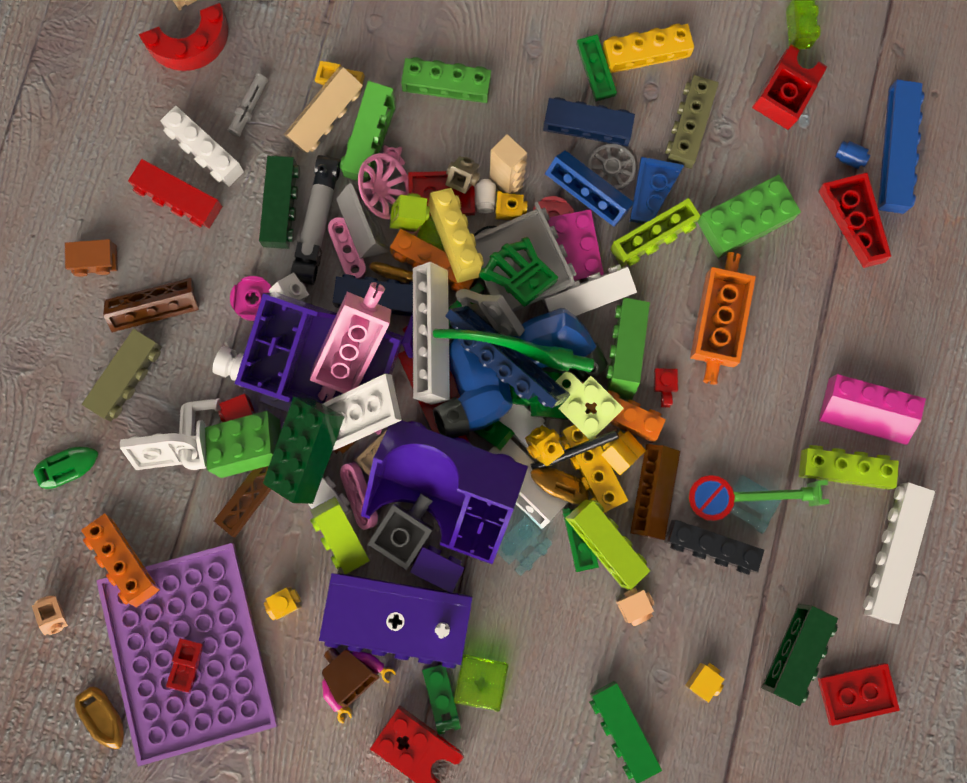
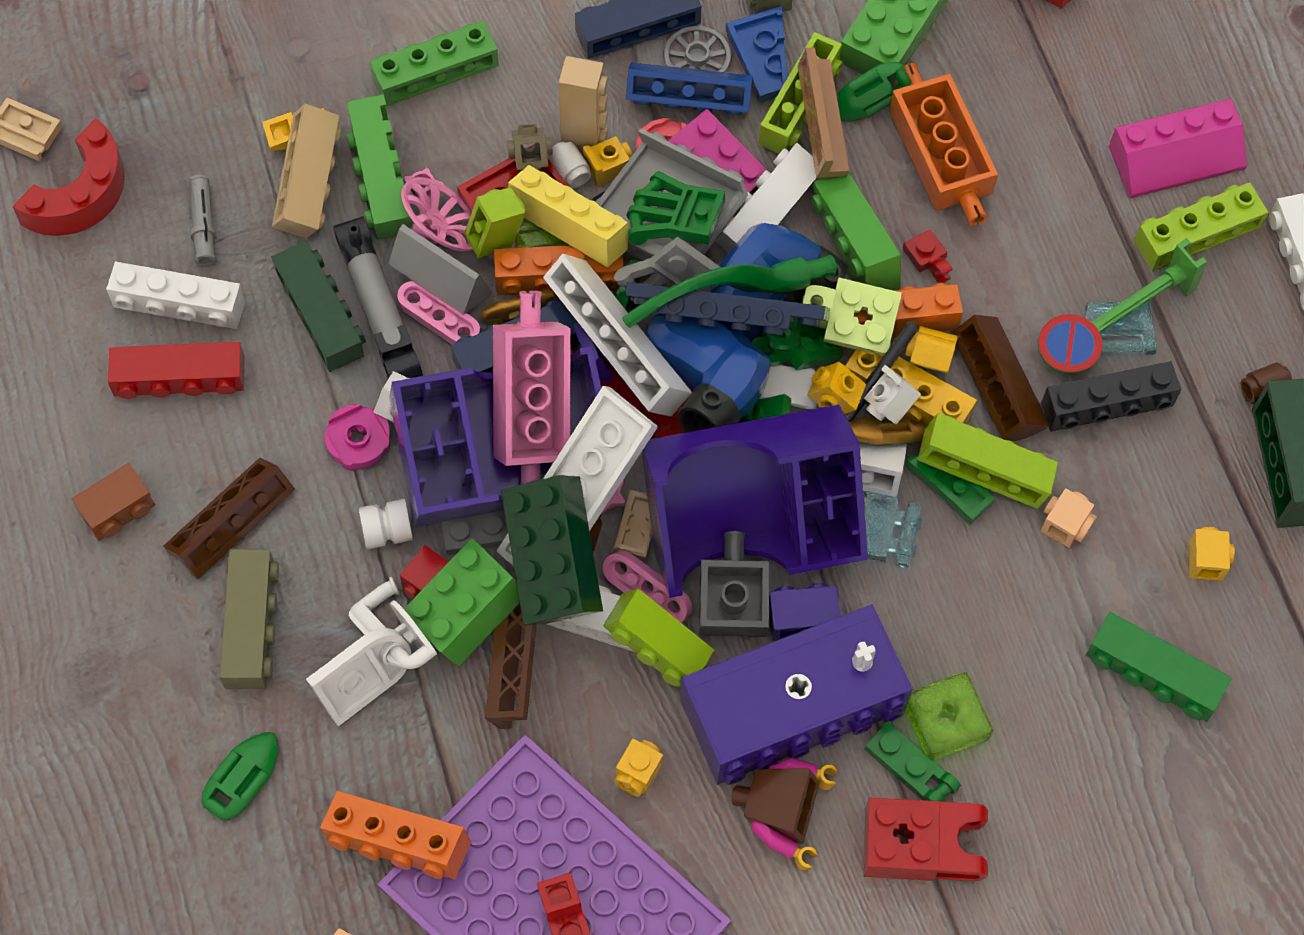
camera: 30 degrees left, 15 degrees down
(574, 470) = (891, 396): none -> white brick
(655, 259) = (822, 116): none -> medium nougat fence
(699, 257) = (870, 91): none -> green piece
(817, 595) = (1257, 380): none -> reddish brown brick

